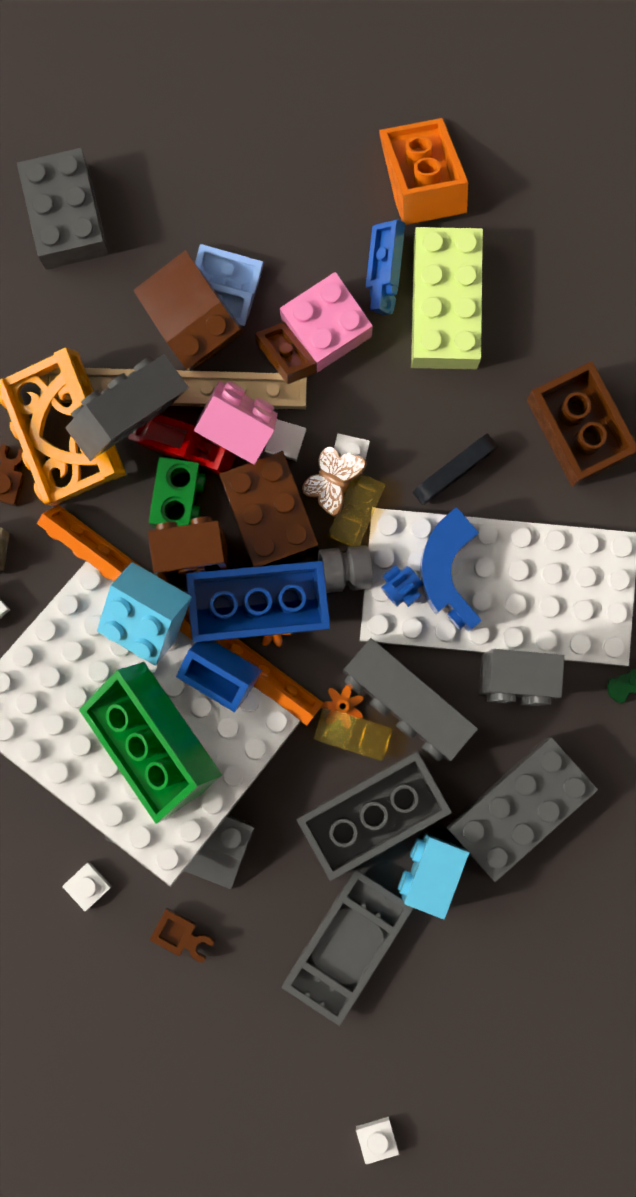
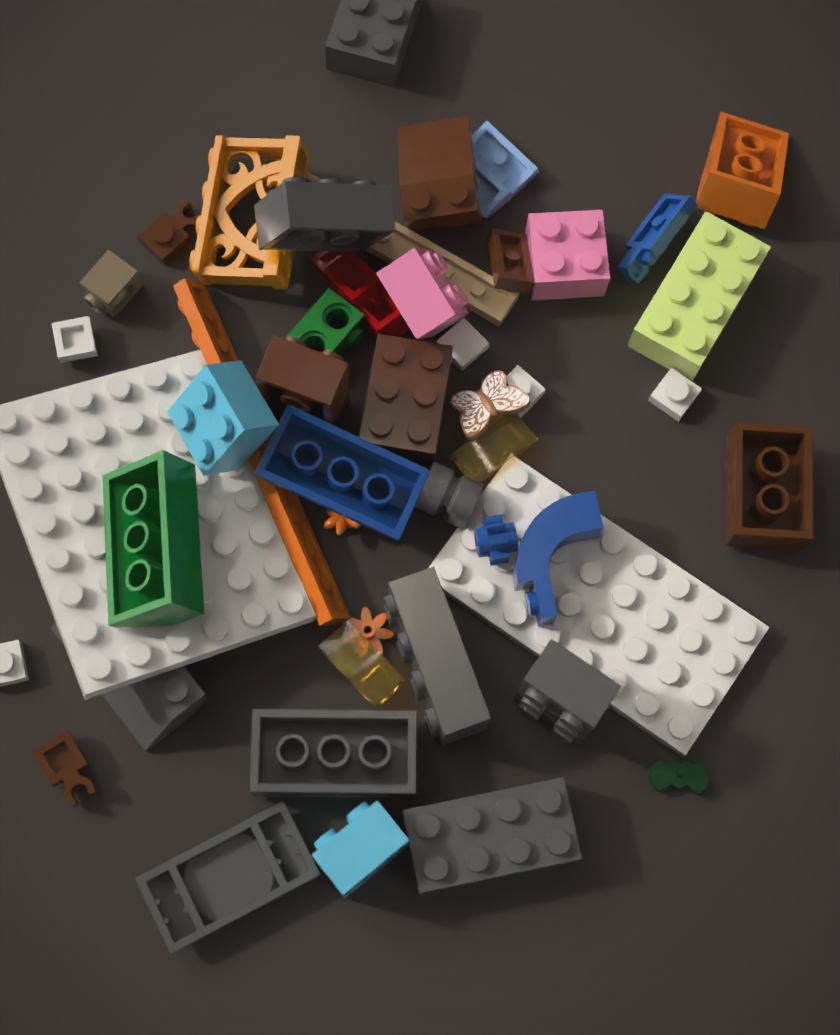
camera: 20 degrees right, 10 degrees down
(218, 673) = (261, 520): blue brick -> none
(455, 469) = (615, 462): black beam -> none
(469, 387) = (674, 394): none -> white plate

